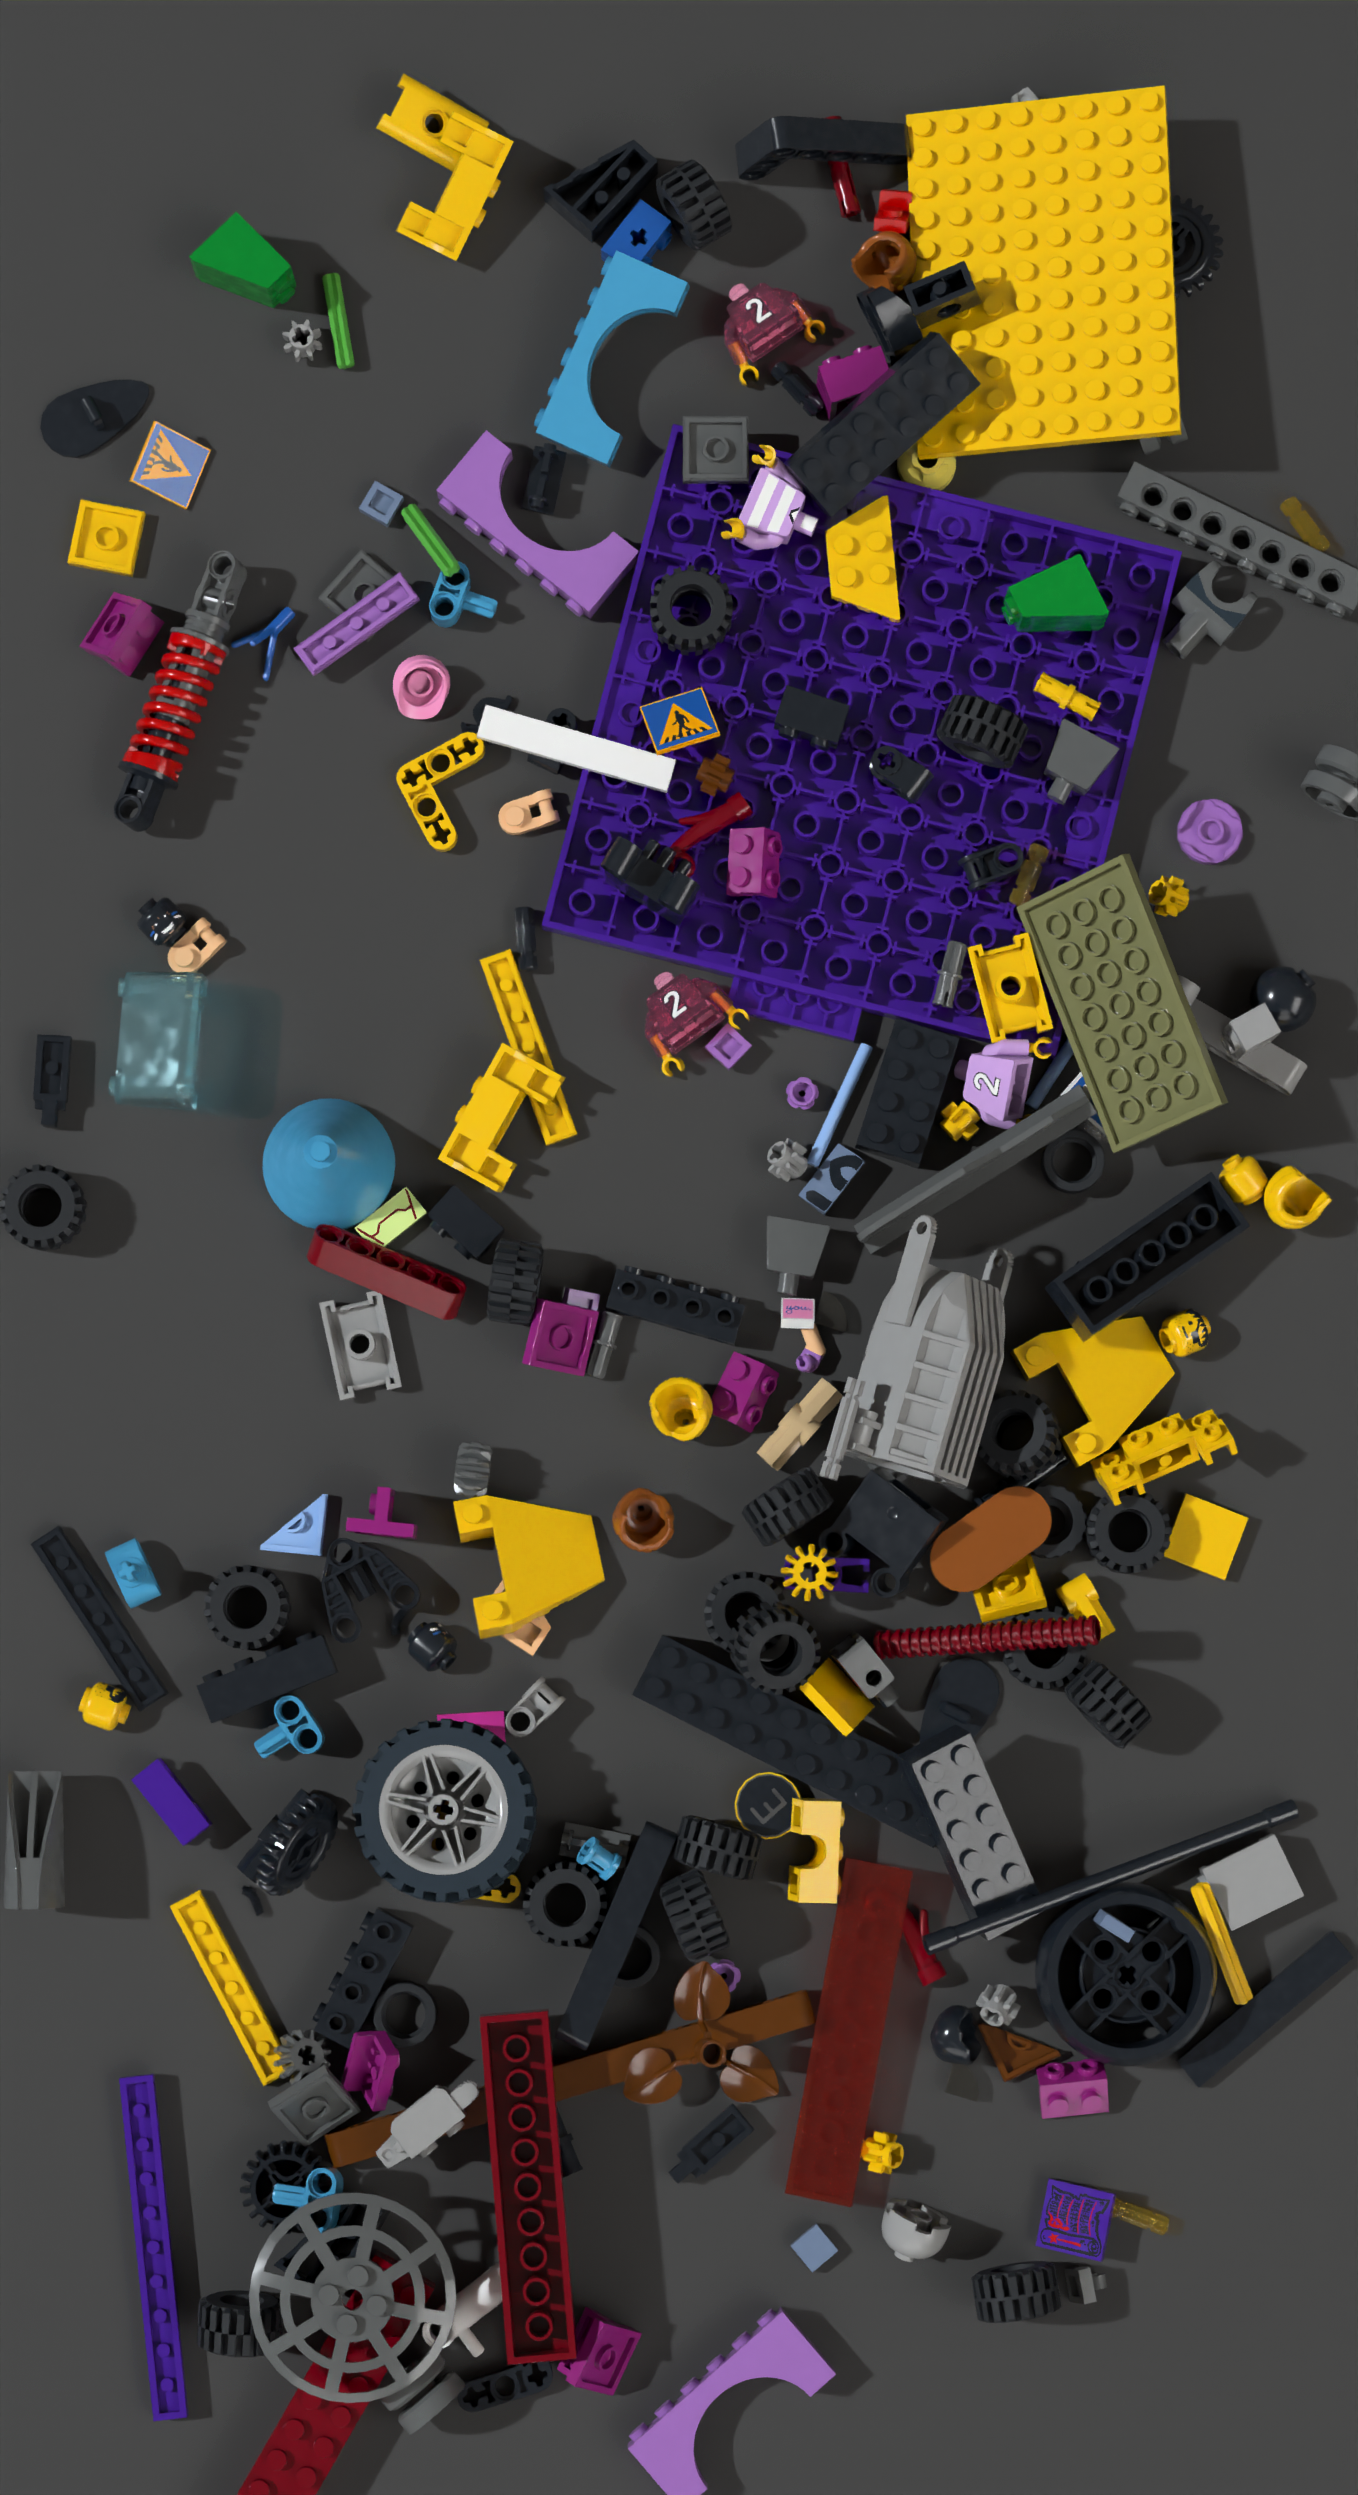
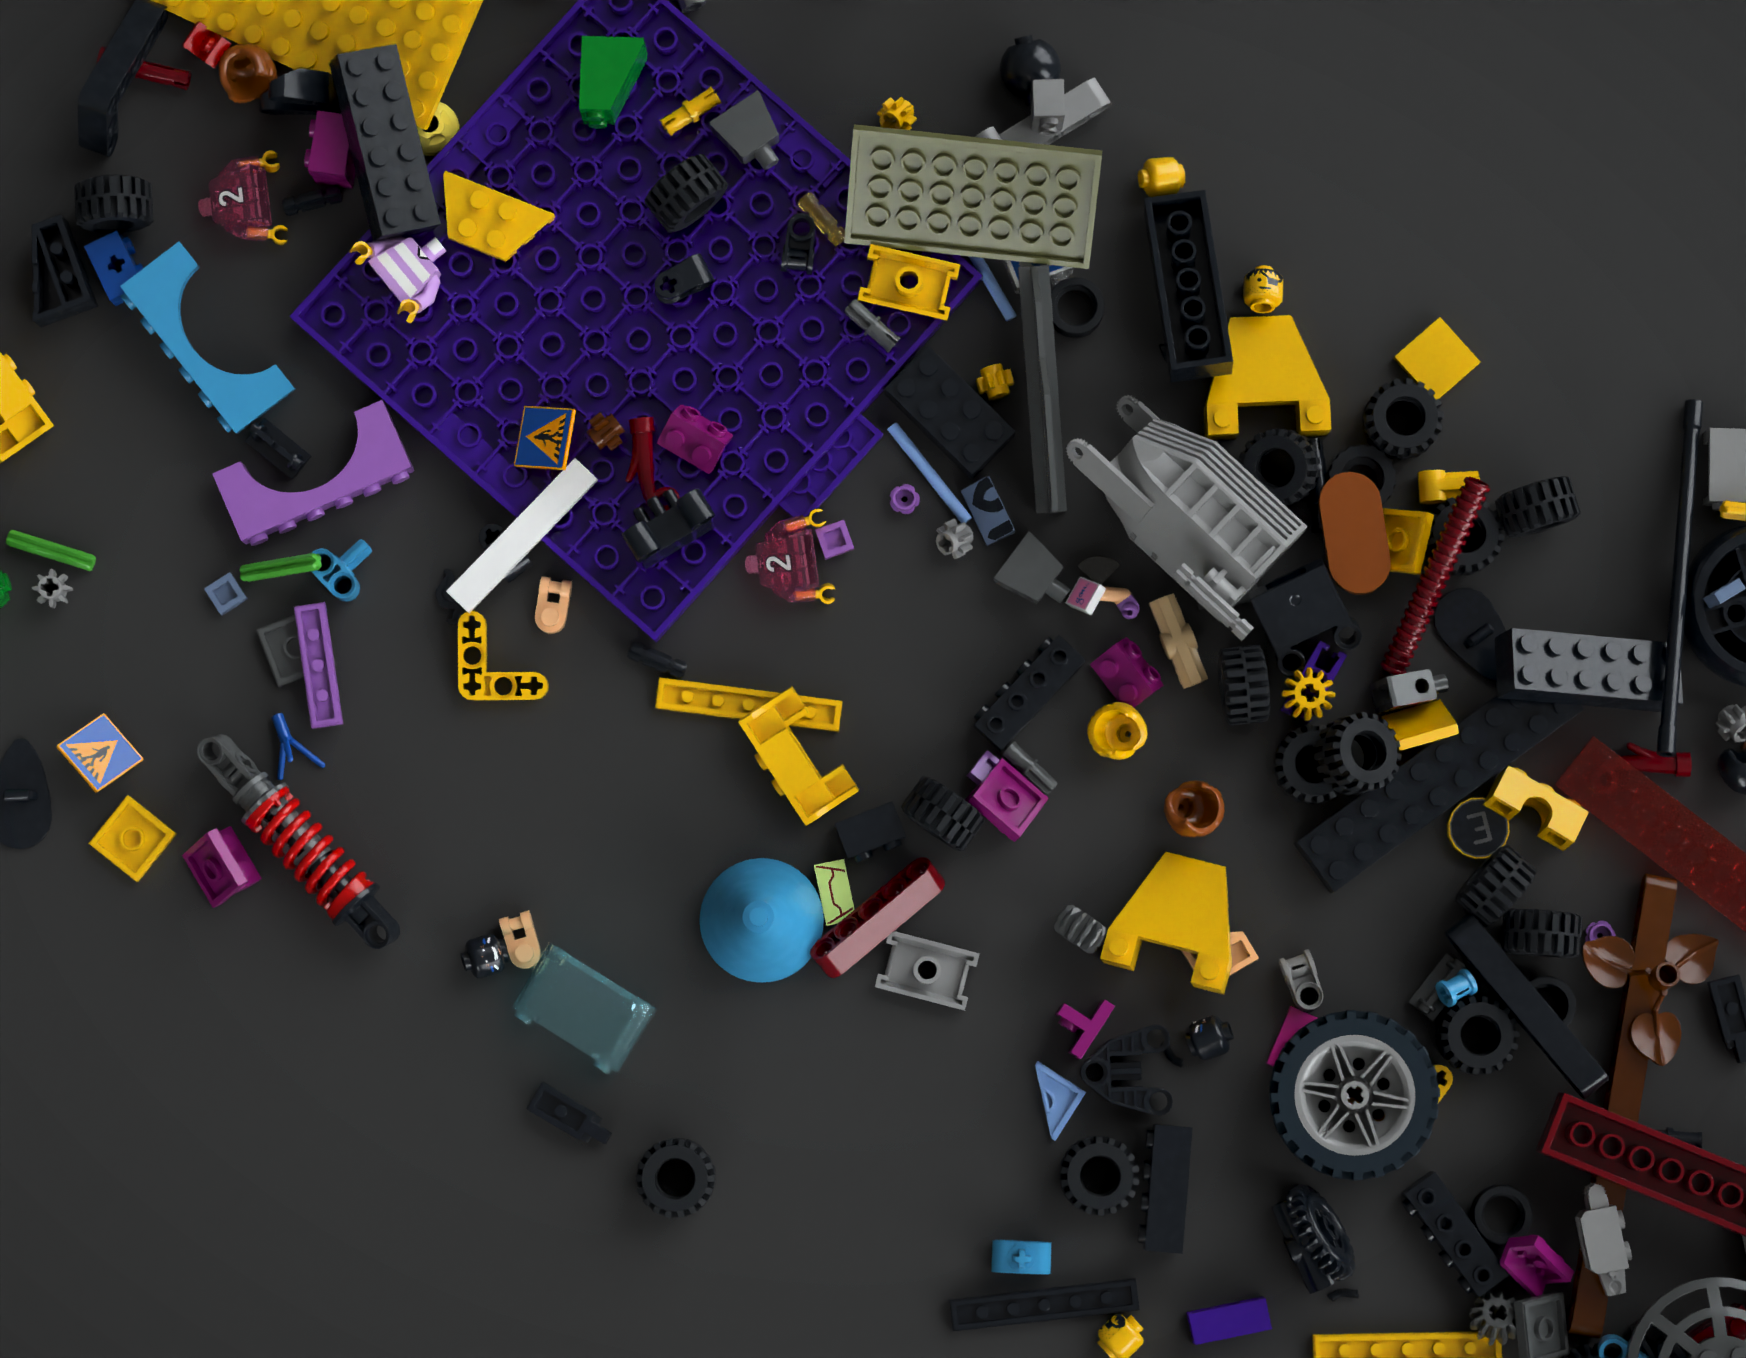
camera: 60 degrees left, 0 degrees up
(290, 1730) = (1219, 1191): dark azure beam -> none
(421, 686) = (399, 638): bright pink hat -> none
(691, 637) = (445, 357): black tyre -> none
(715, 450) = (330, 292): dark grey tile -> none
(811, 718) = (599, 329): black brick -> none
(942, 295) = (302, 37): black brick -> none
(1000, 1079) = (979, 330): lavender torso -> none
(1161, 1450) = (1350, 358): yellow bracket -> none
(1209, 831) = (859, 56): medium lavender tile -> none
(1294, 1199) = (1199, 144): yellow piece -> none

